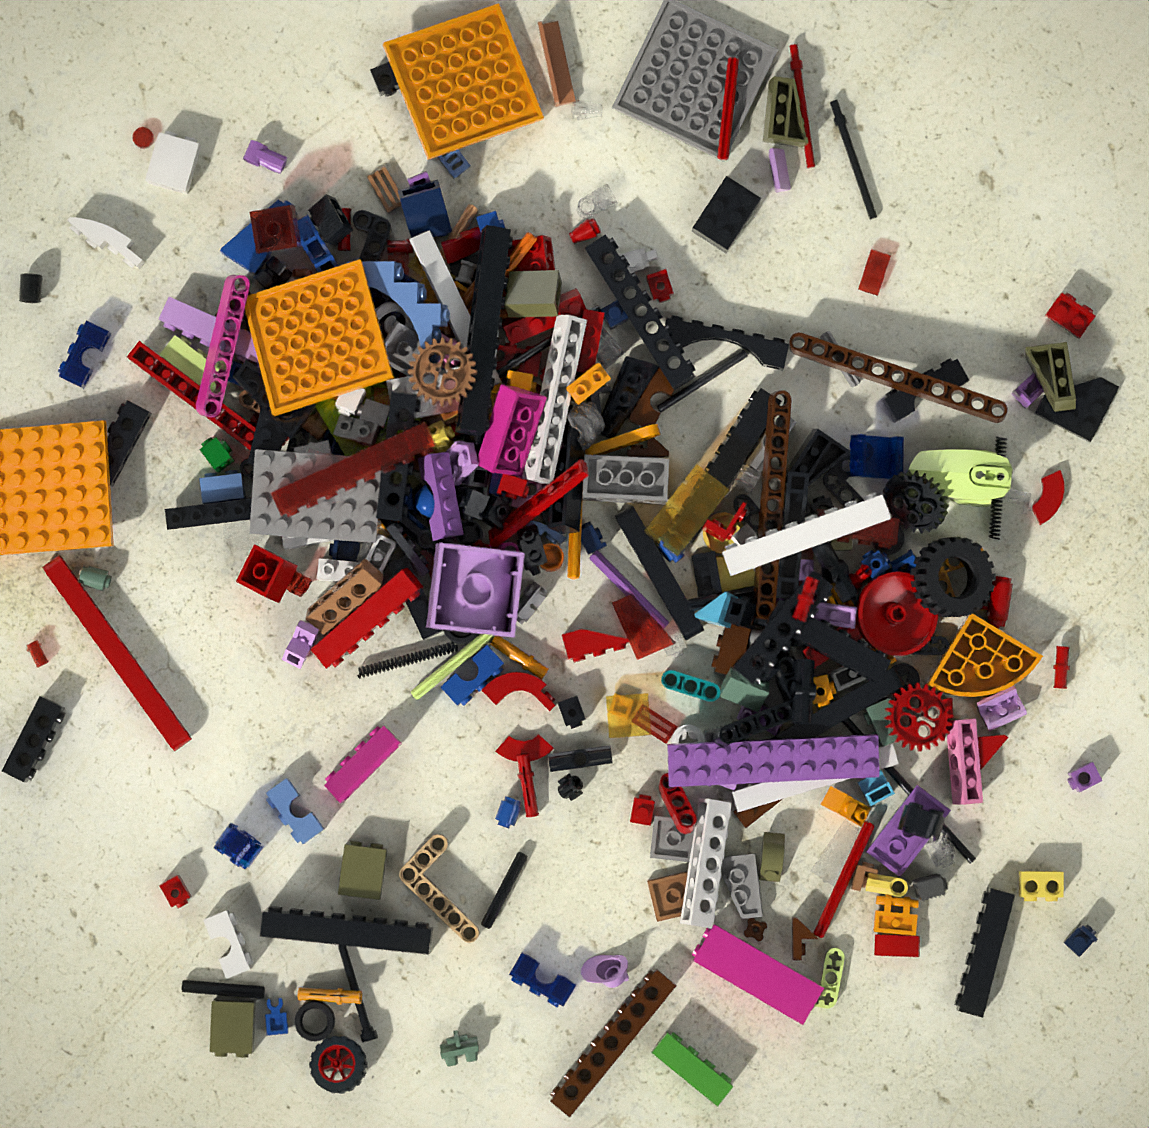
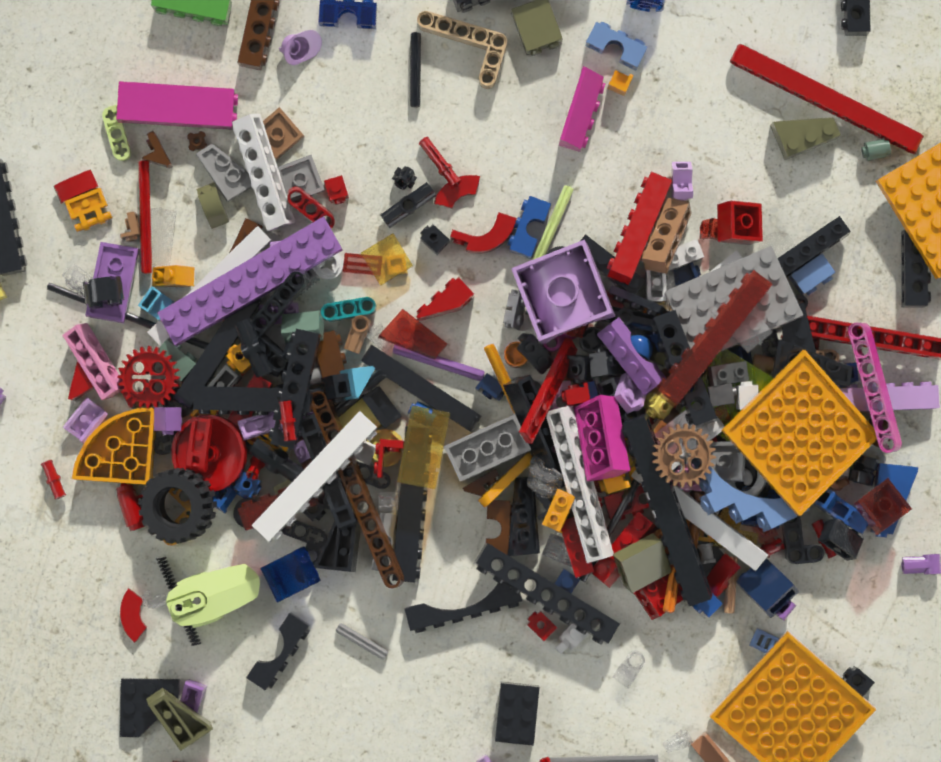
camera: 155 degrees right, 0 degrees up
(37, 653) = (890, 66): clear red pin -> none
(160, 628) = (803, 135): none -> olive wedge
(187, 359) = (897, 364): yellowish green brick -> none
(217, 453) = (831, 299): green brick -> none
(310, 773) = (620, 82): none -> light orange panel
(377, 174) = (821, 598): medium nougat tile -> none
(407, 661) = (598, 203): black piece -> none
(508, 812) = (444, 132): blue brick -> none
(526, 661) = (495, 262): light orange pin -> none
(553, 536) = (523, 372): medium blue slope -> none
(585, 231) = (626, 639): red cone -> none
(695, 655) = (356, 336): none -> medium nougat piece
(702, 381) = (466, 564): black piece -> none
(874, 272) = (370, 728): clear red slope -> none
(883, 884) = (110, 229): light yellow piece -> none
(901, 626) = (199, 443): none -> red plate
(905, 385) = (296, 645): reddish brown beam -> none
(915, 501) = (240, 553): black gear -> none
(921, 666) = (167, 419): none -> medium lavender brick
(930, 886) = (71, 245): dark grey brick -> none

